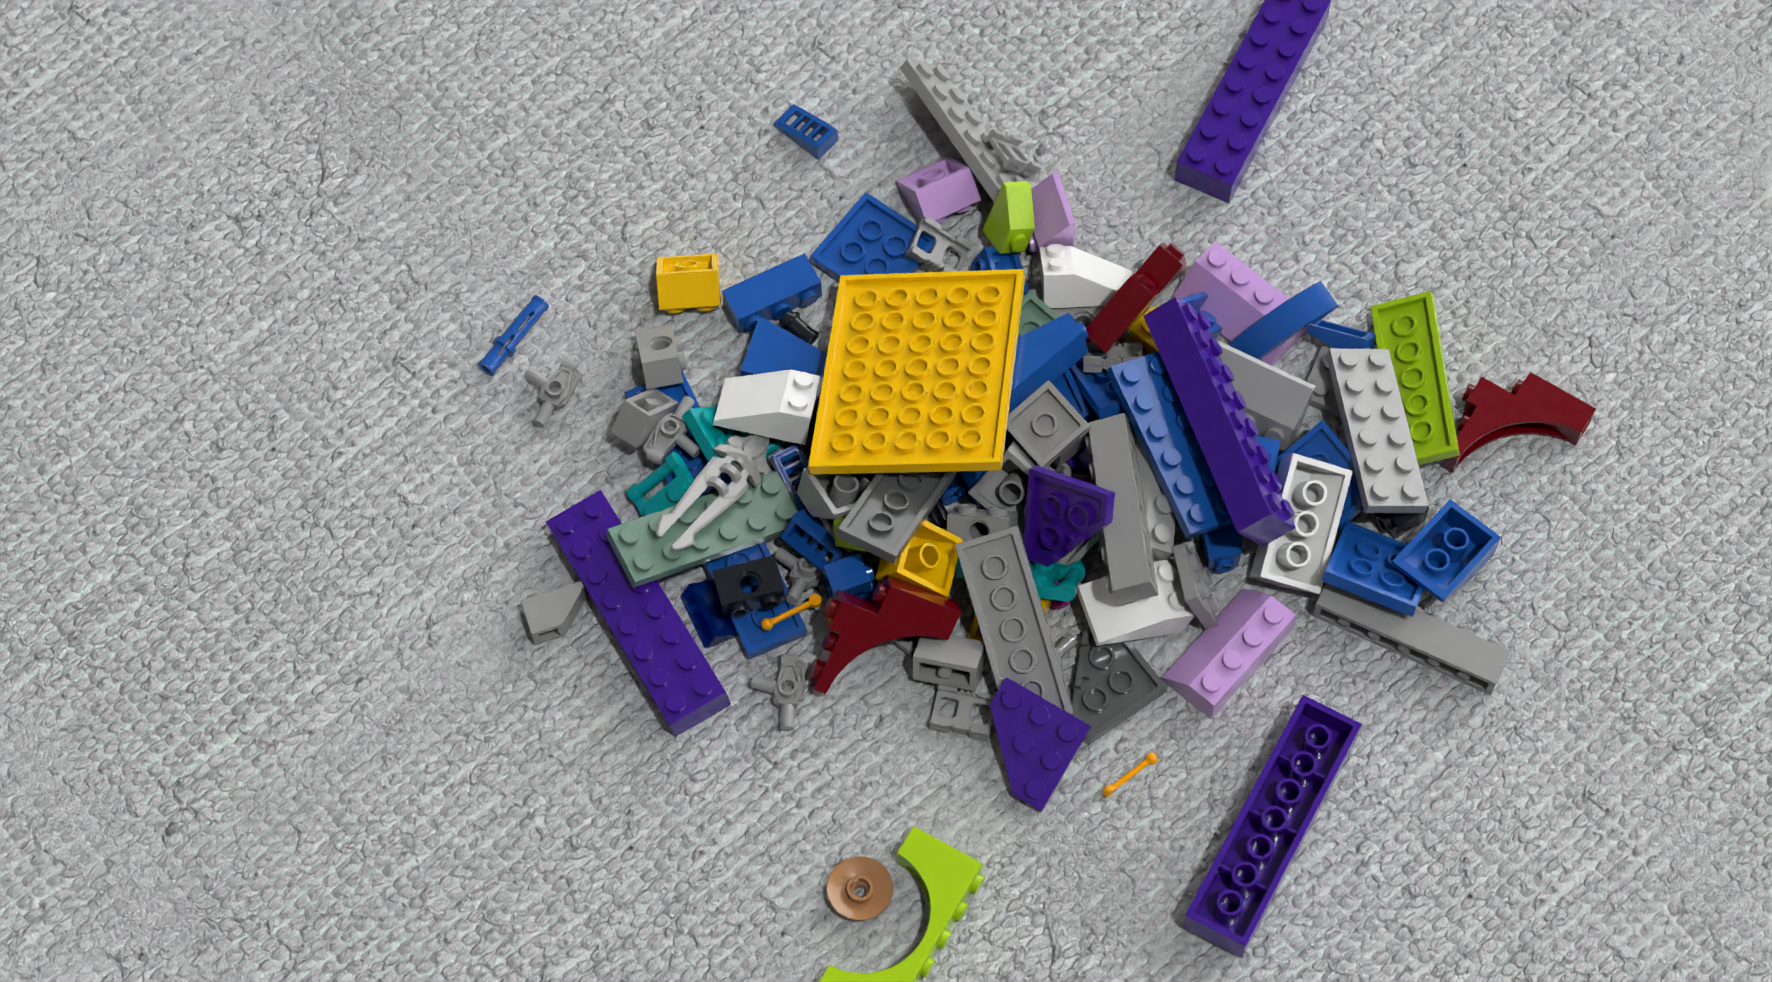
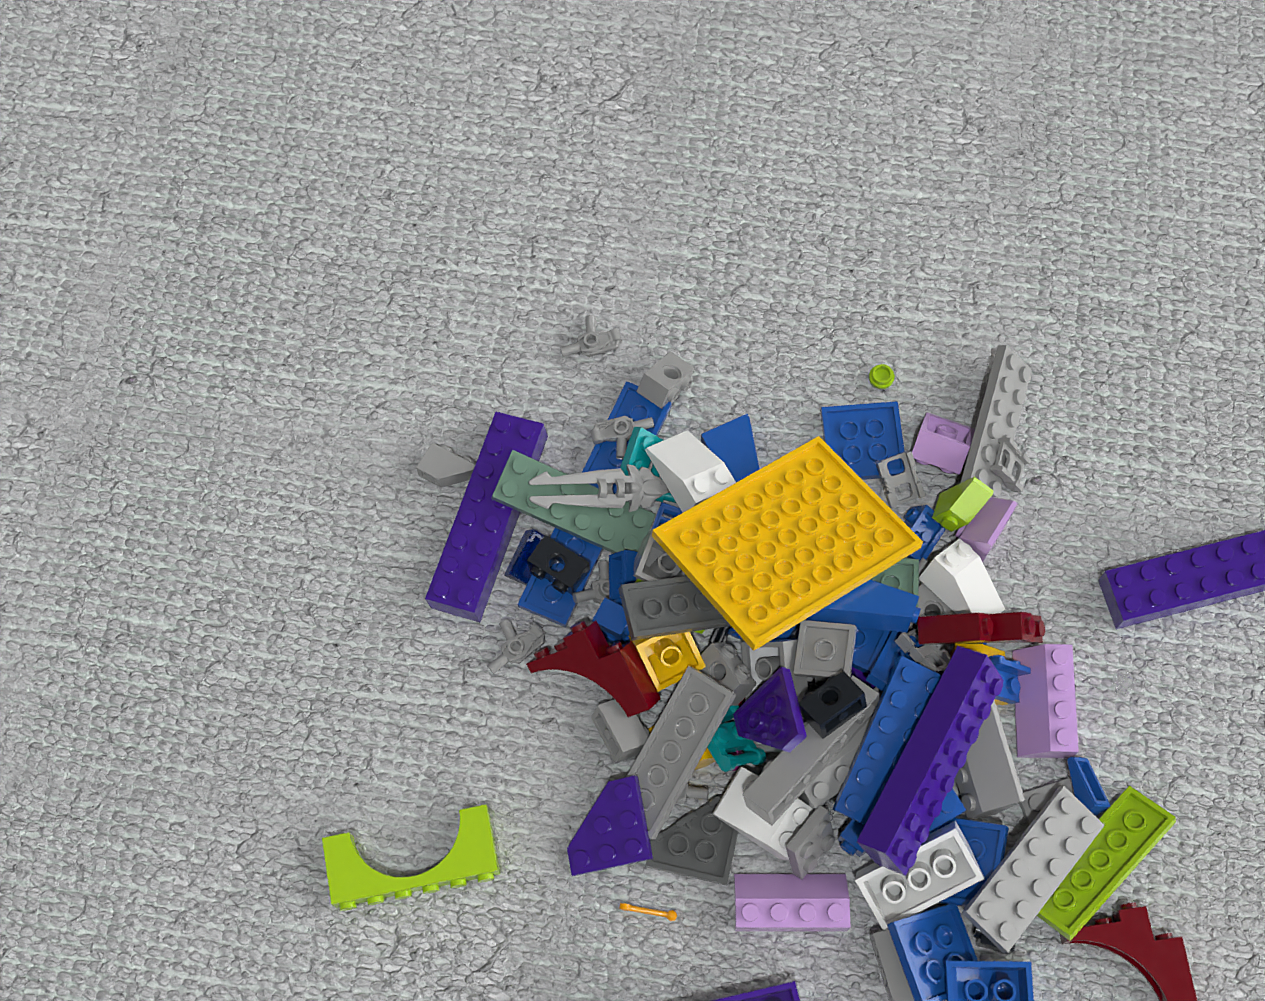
camera: 50 degrees right, 5 degrees up
(491, 360) = (636, 285): blue pin -> none
(641, 415) = (615, 402): light grey slope -> none
(668, 495) = (571, 465): teal plate -> none
(688, 282) = (735, 352): yellow slope -> none
(772, 293) = (774, 407): blue brick -> none
(795, 325) = (766, 443): black pin -> none
(814, 601) = (588, 612): light orange hinge -> none
(817, 148) = (907, 348): blue slope -> none
(828, 186) = (881, 376): none -> lime plate
(855, 874) = (410, 797): medium nougat dish -> none
(961, 722) = (591, 771): light grey piece -> none
(1101, 435) = (827, 718): none -> black brick
(1286, 321) = (1054, 739): blue slope -> none

